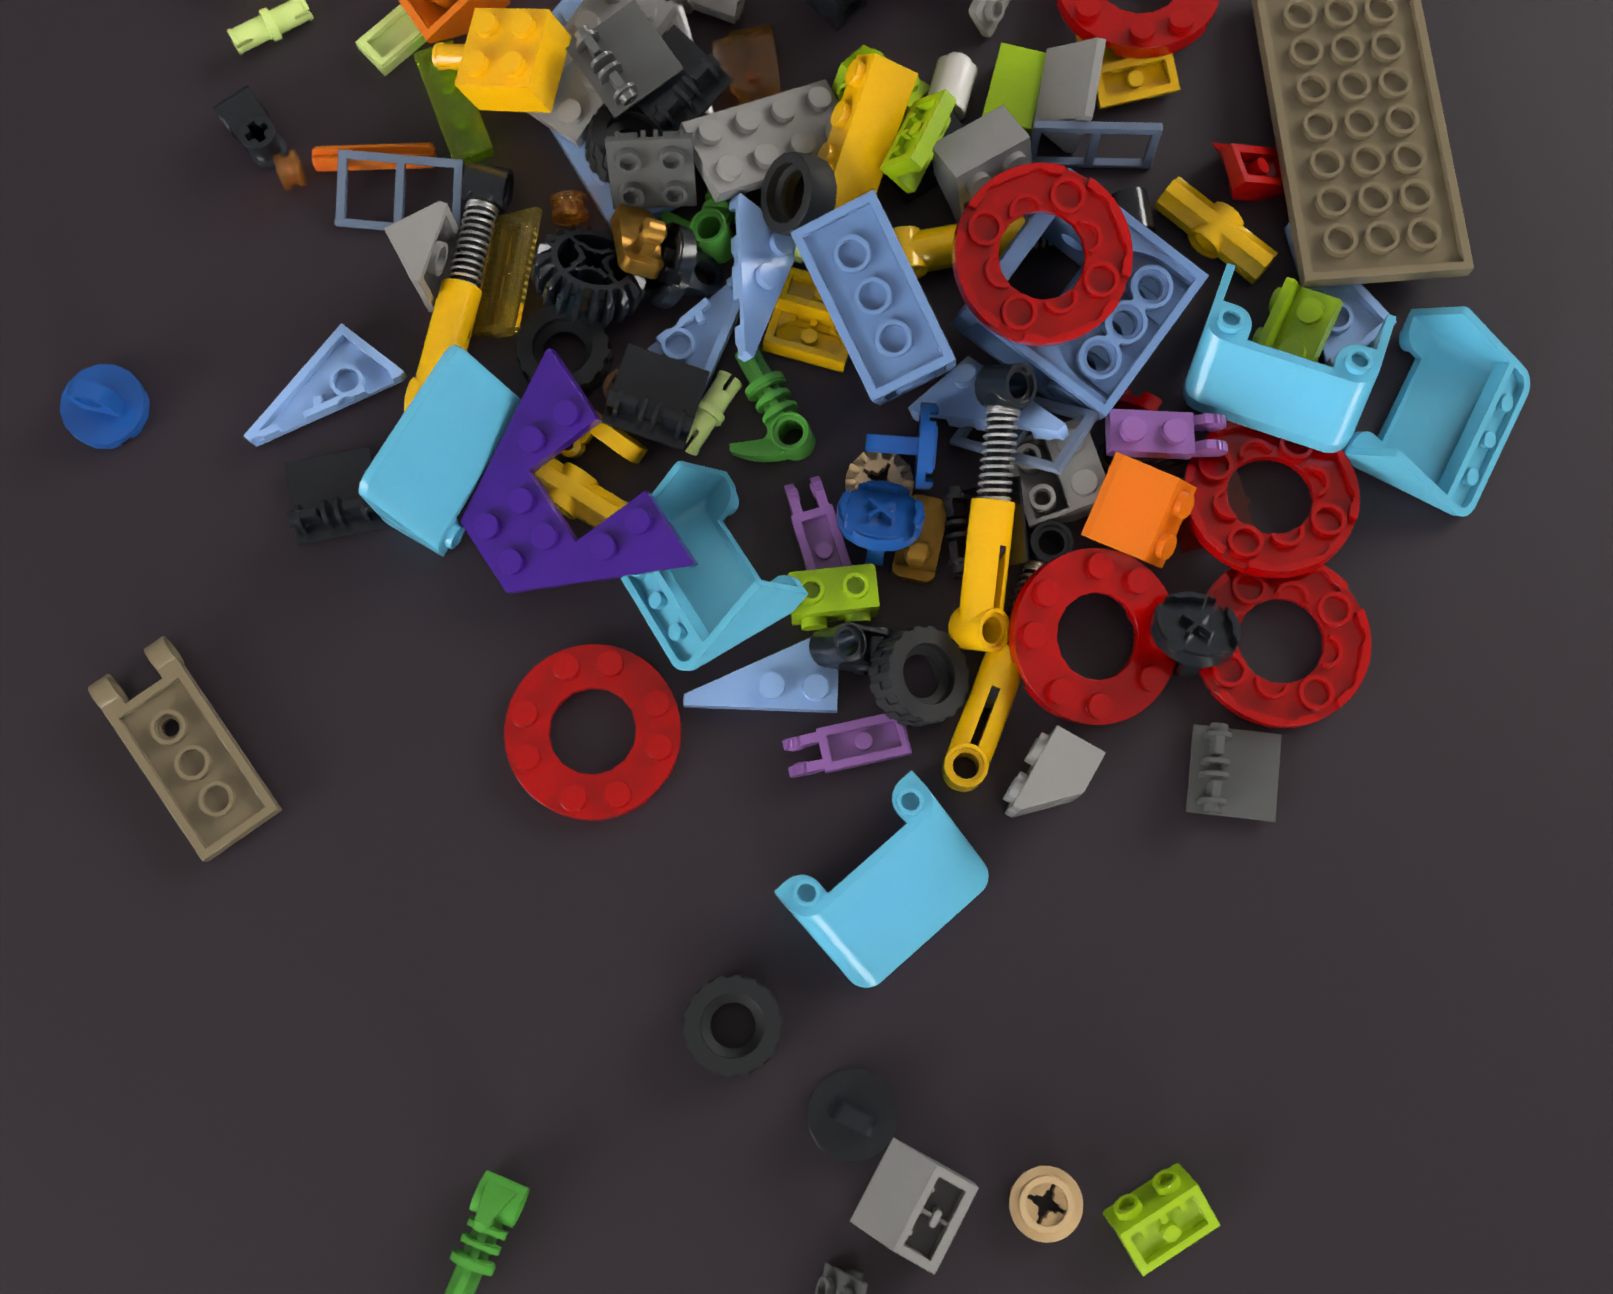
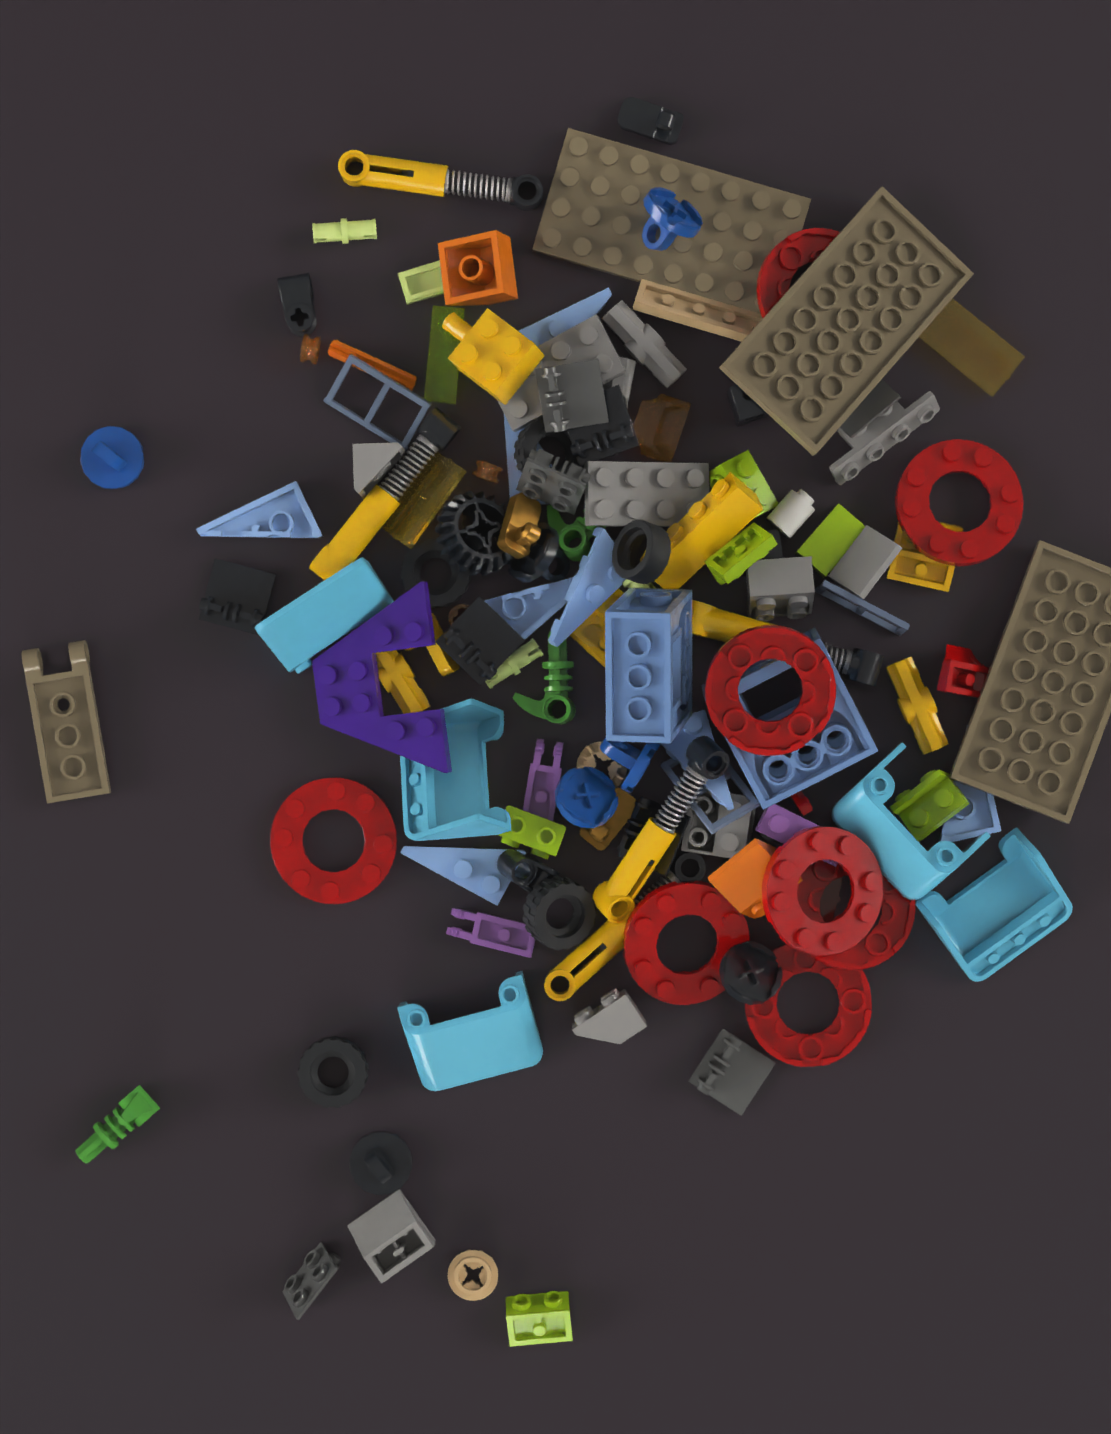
camera: 25 degrees right, 10 degrees up
(1186, 506) = (781, 883): none -> red plate

